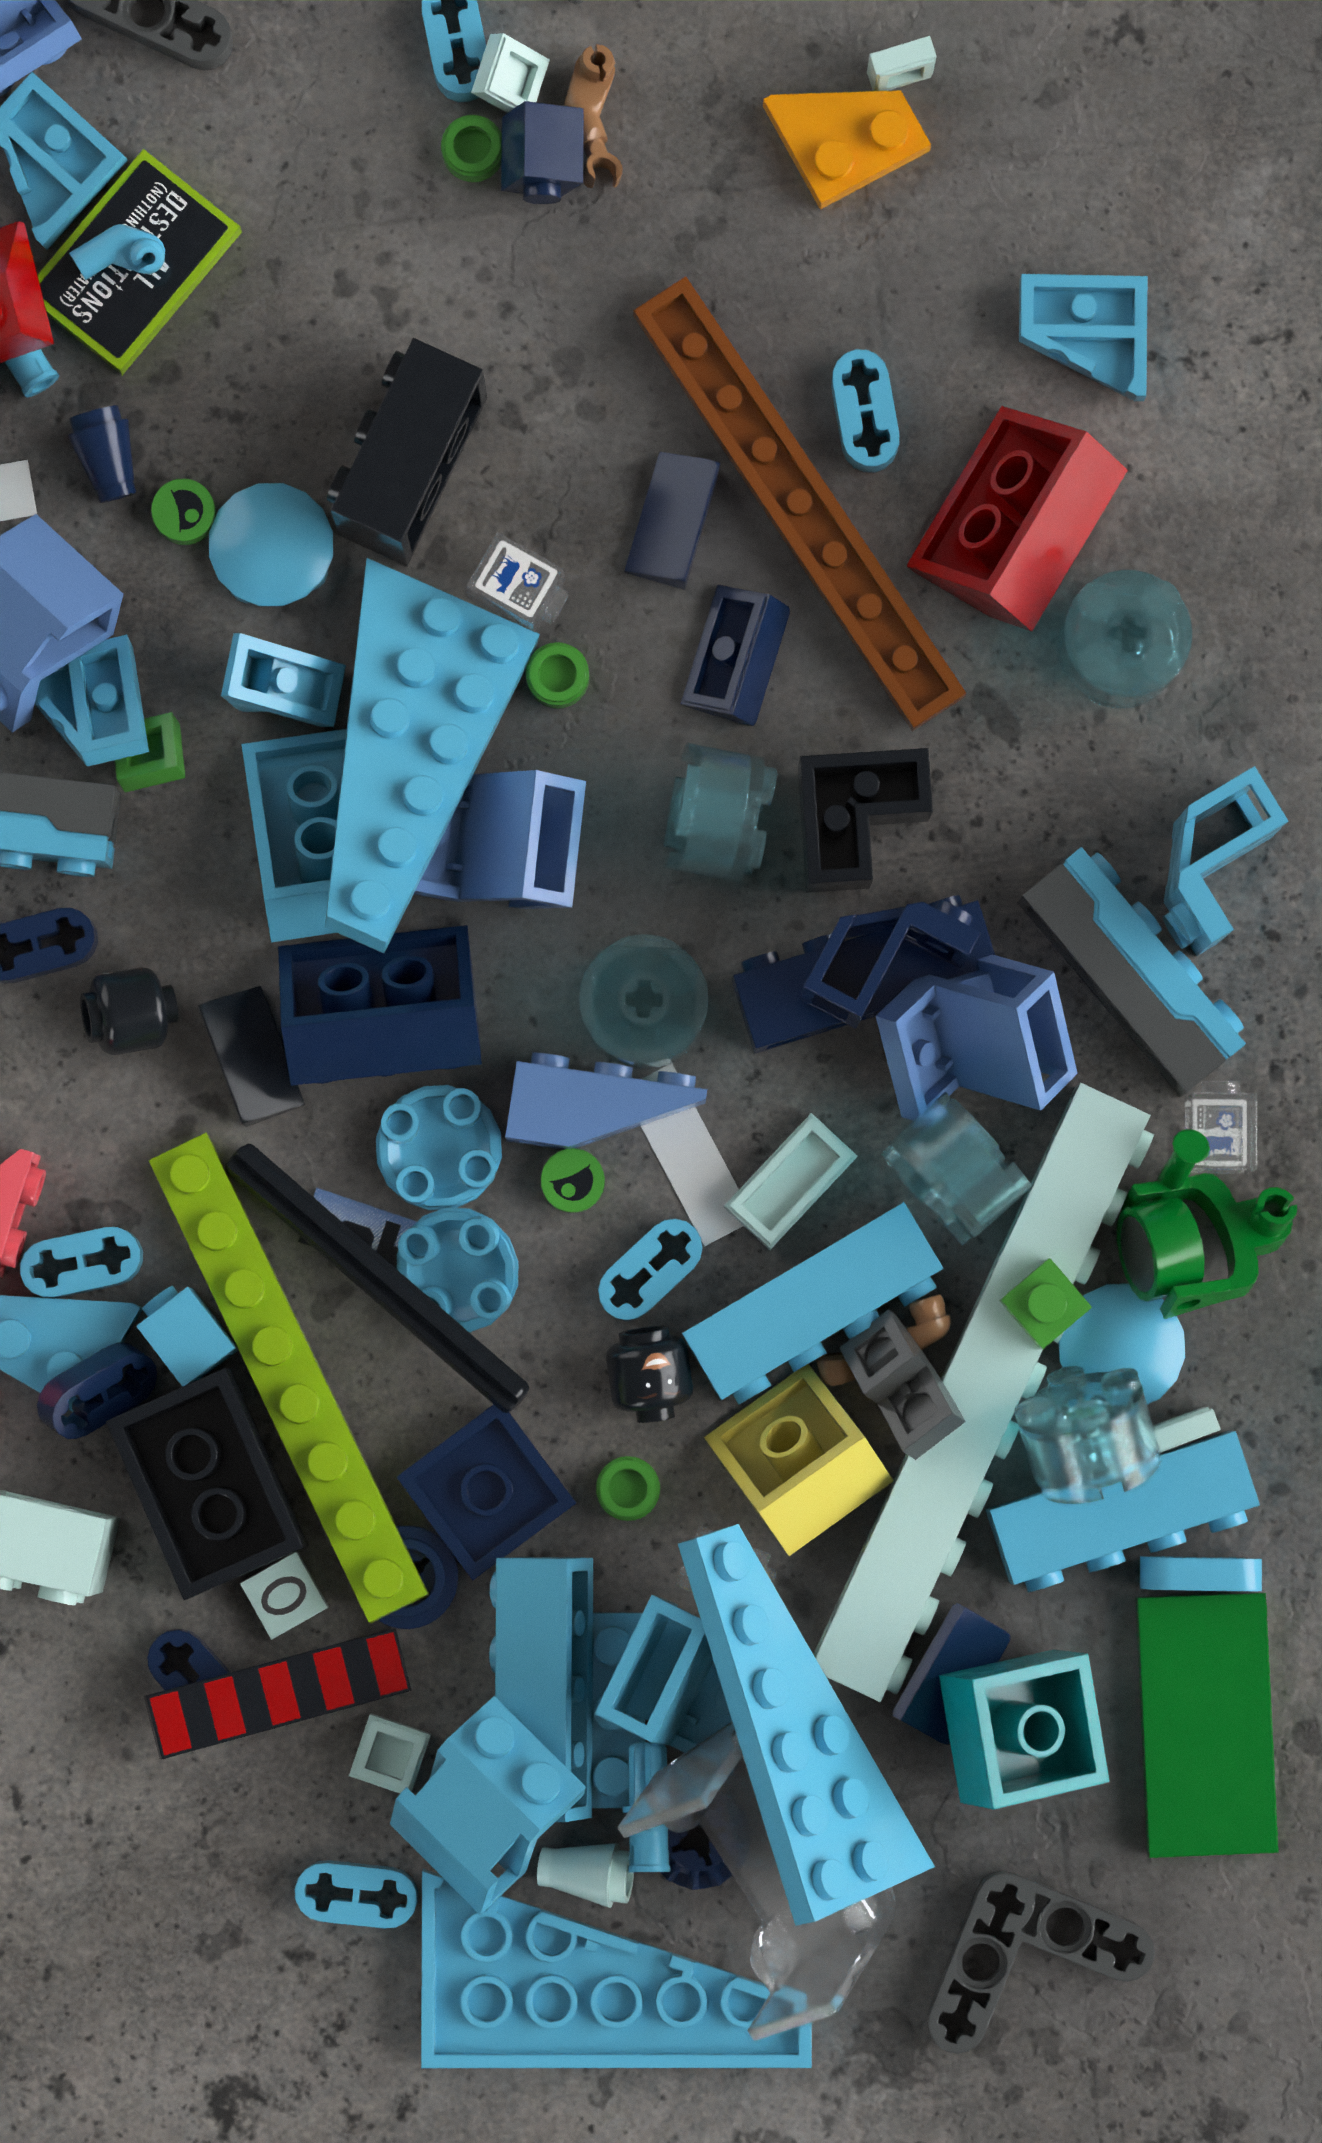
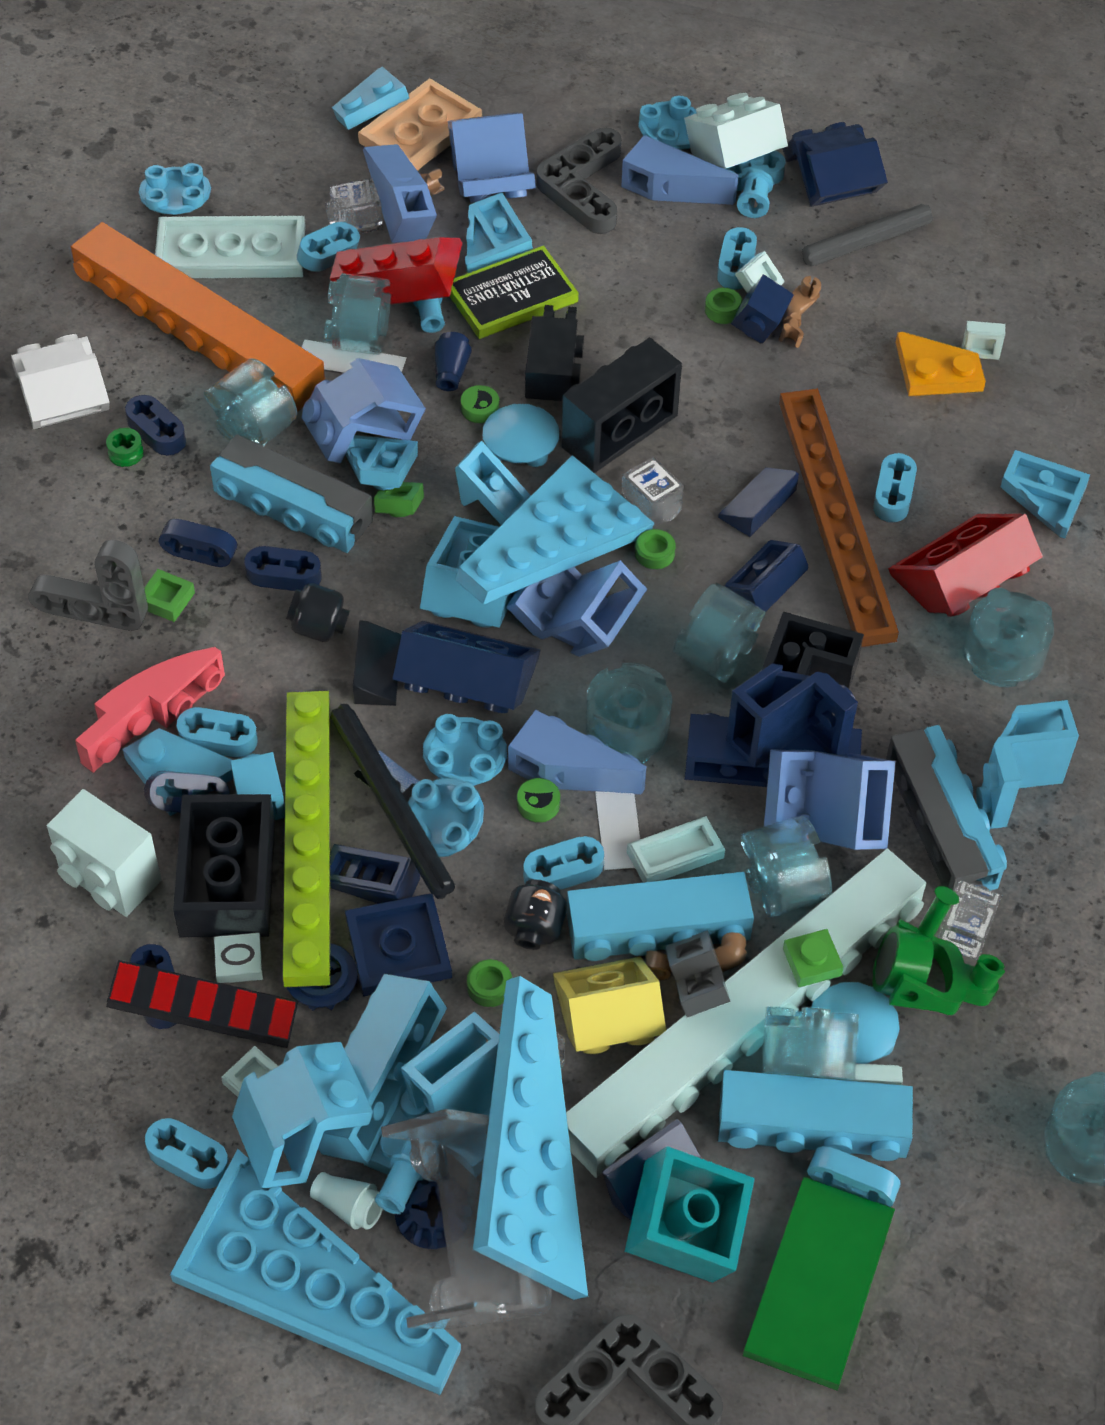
camera: 25 degrees right, 30 degrees down
(122, 247) = (508, 274): medium azure arm -> none
(256, 376) = (552, 355): none -> black hinge
(451, 1397) = (398, 878): none -> dark blue slope

